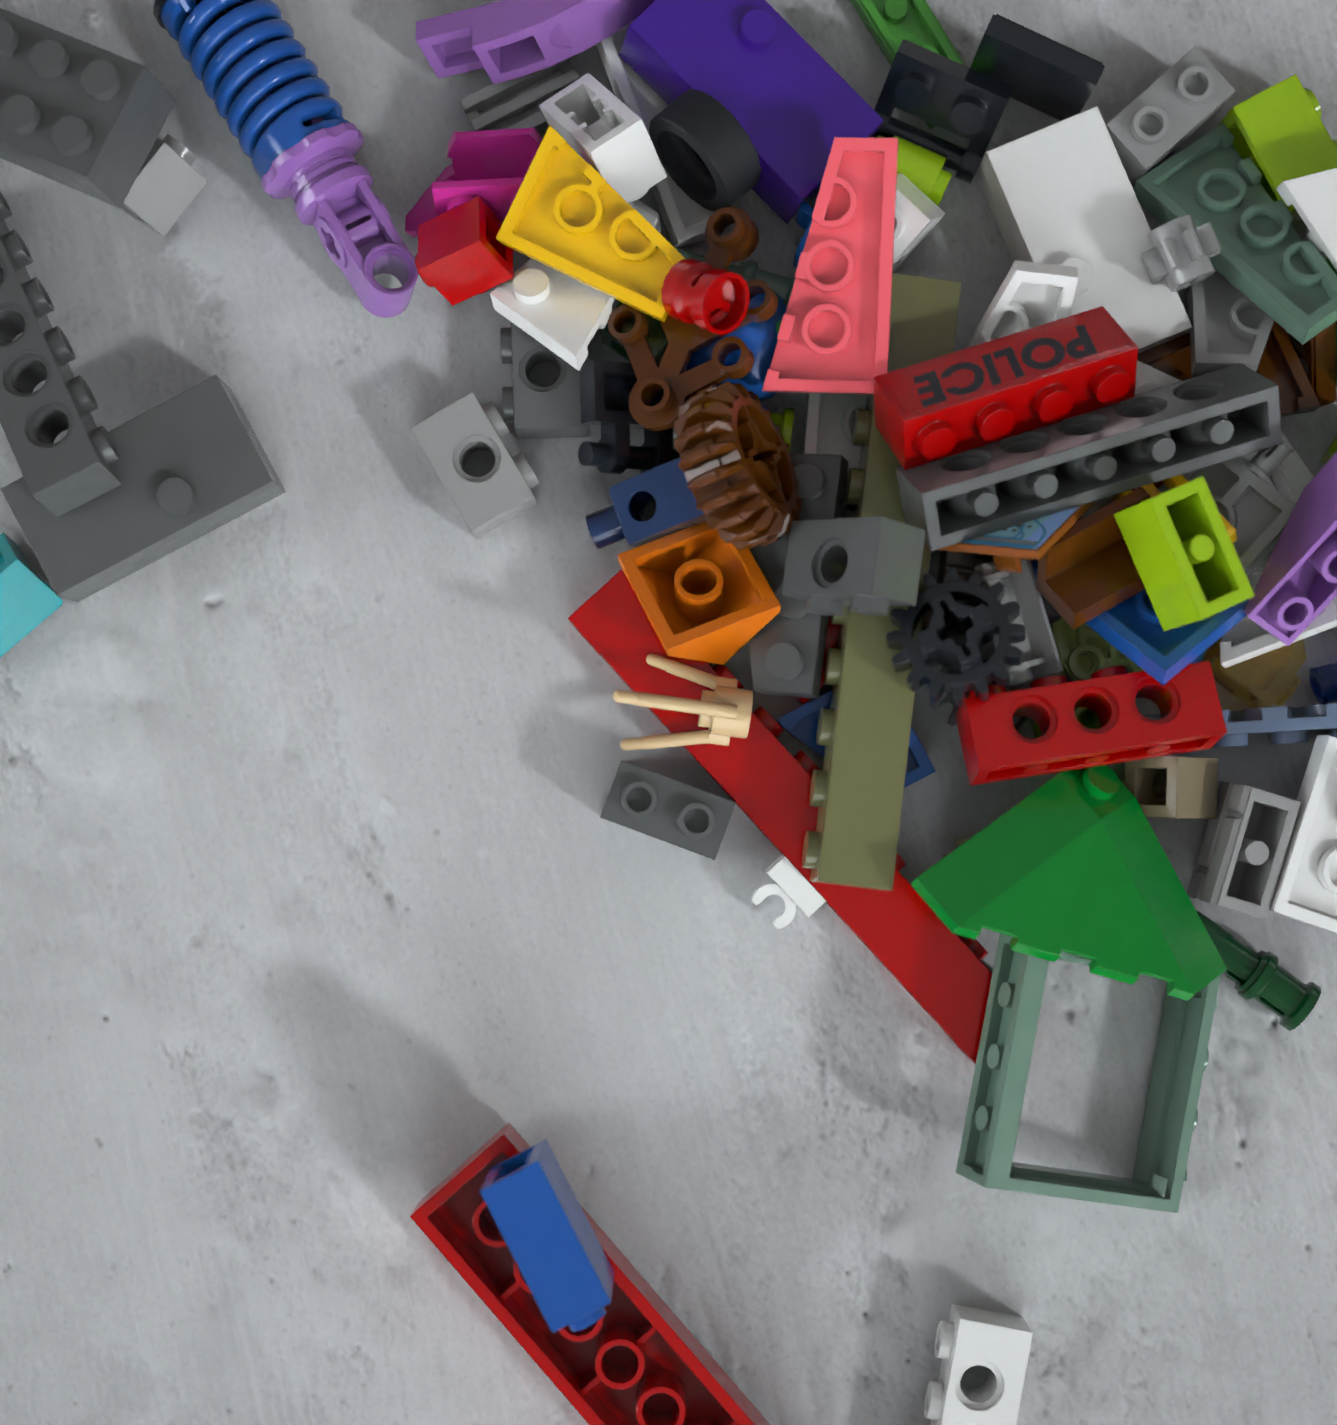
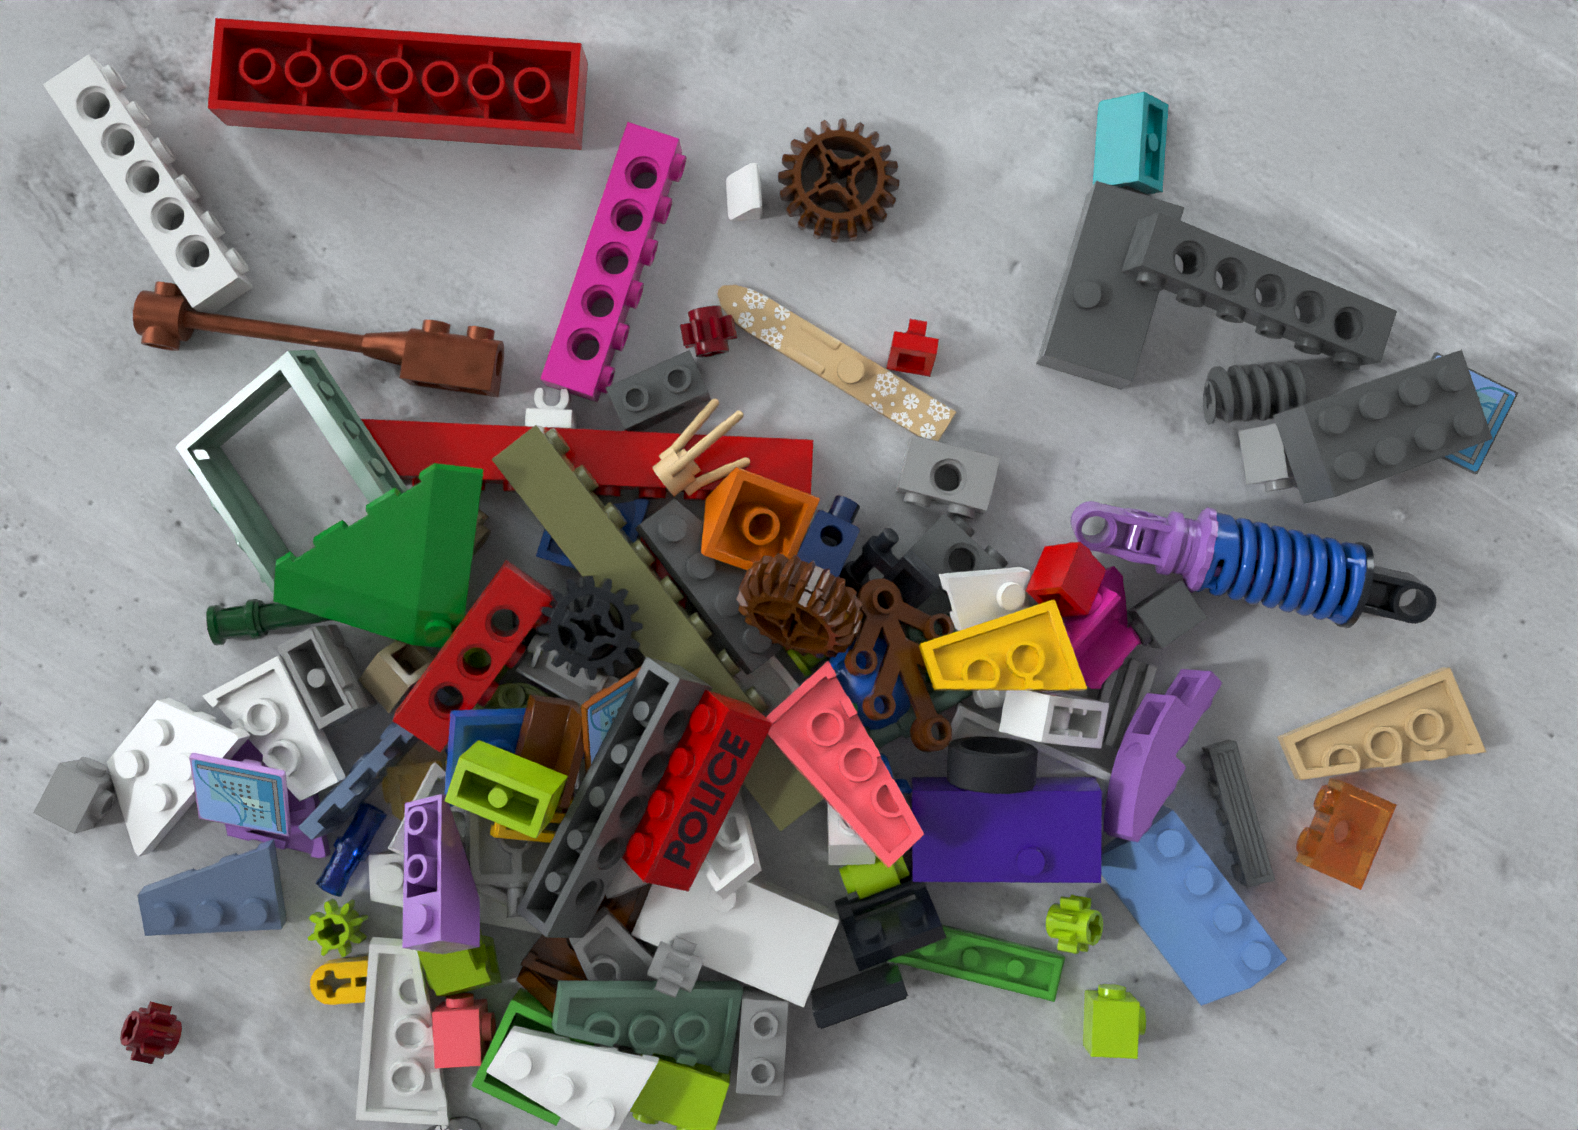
camera: 135 degrees right, 0 degrees up
(110, 262) = (1253, 389): none -> dark grey piece
(287, 872) = (822, 148): none -> reddish brown gear
(388, 614) = (913, 351): none -> red tile
(396, 922) = (744, 194): none -> white slope
(403, 137) = (1165, 615): none -> dark grey brick
(456, 1061) = (638, 153): none -> dark pink brick
(471, 678) = (835, 362): none -> tan piece
(549, 1238) = (493, 97): blue brick -> none
(563, 822) = (708, 331): none -> dark red gear
(705, 296) = (907, 677): red wheel -> none
(850, 1066) = (426, 355): none -> copper bar
(853, 564) = (681, 610): dark grey brick -> none

